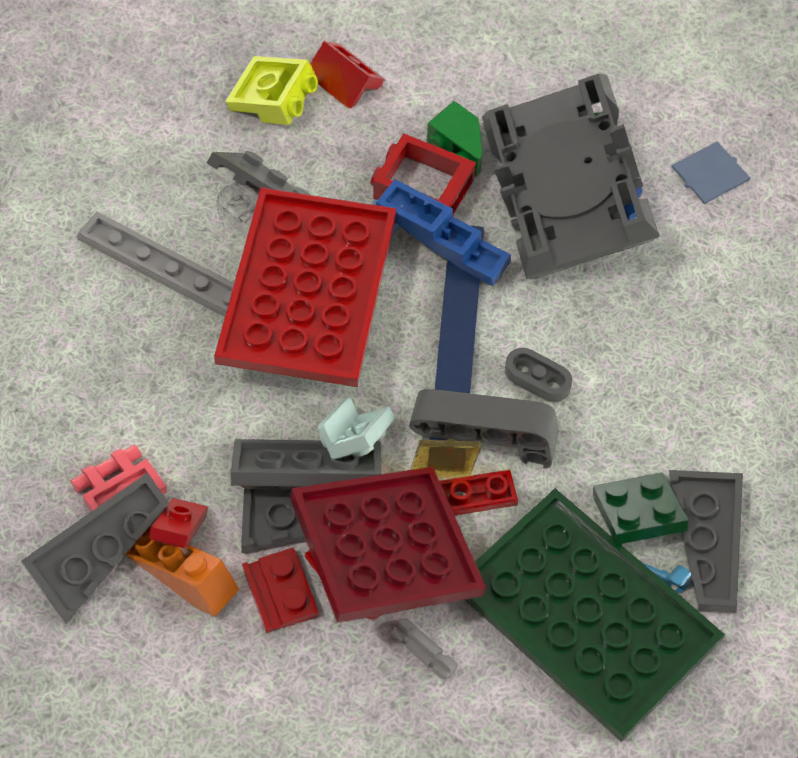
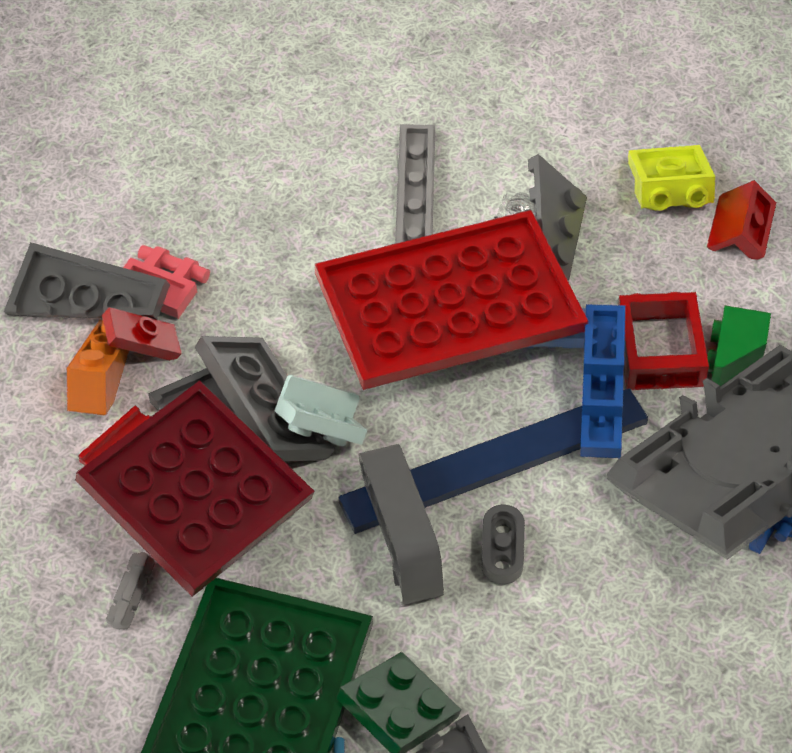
camera: 65 degrees right, 5 degrees down
(447, 457) = (334, 500): clear yellow piece -> none
(482, 492) = (333, 558): red tile -> none

